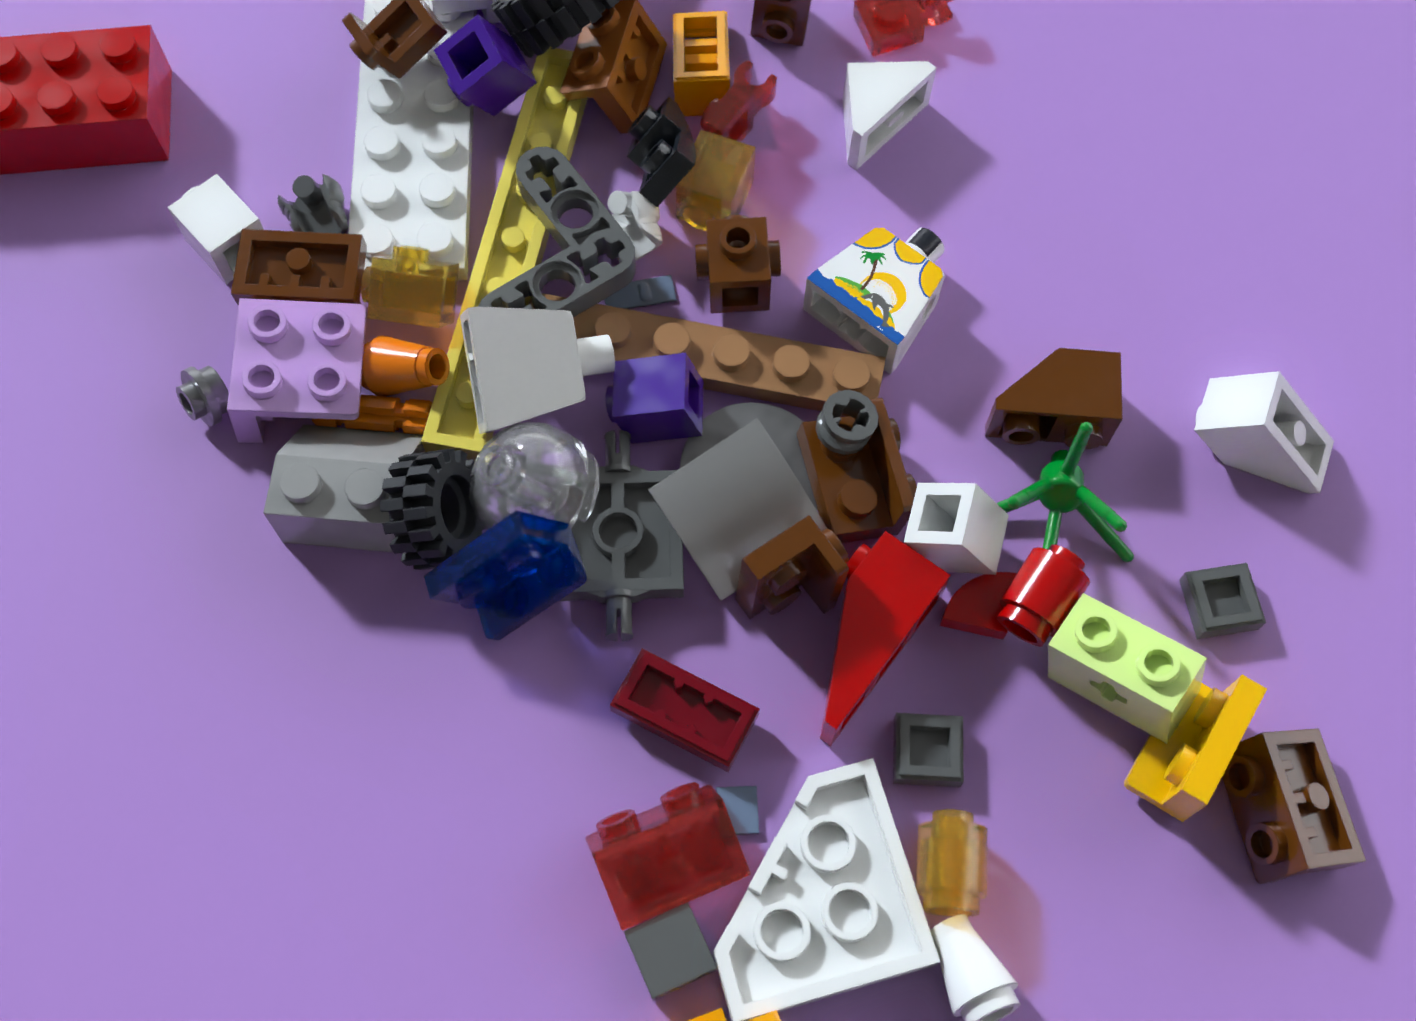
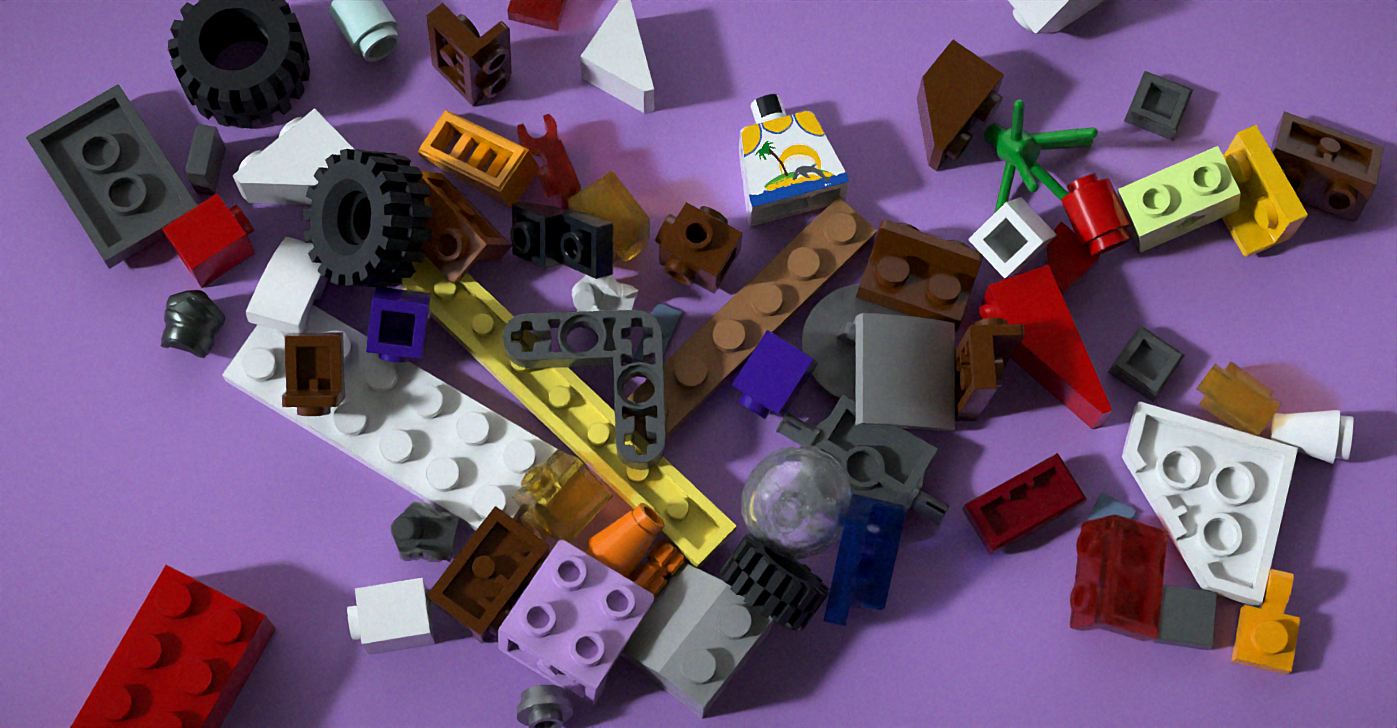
camera: 60 degrees left, 5 degrees up
(528, 362) = (705, 449): white torso -> none
(854, 405) = (885, 271): dark grey bush -> none

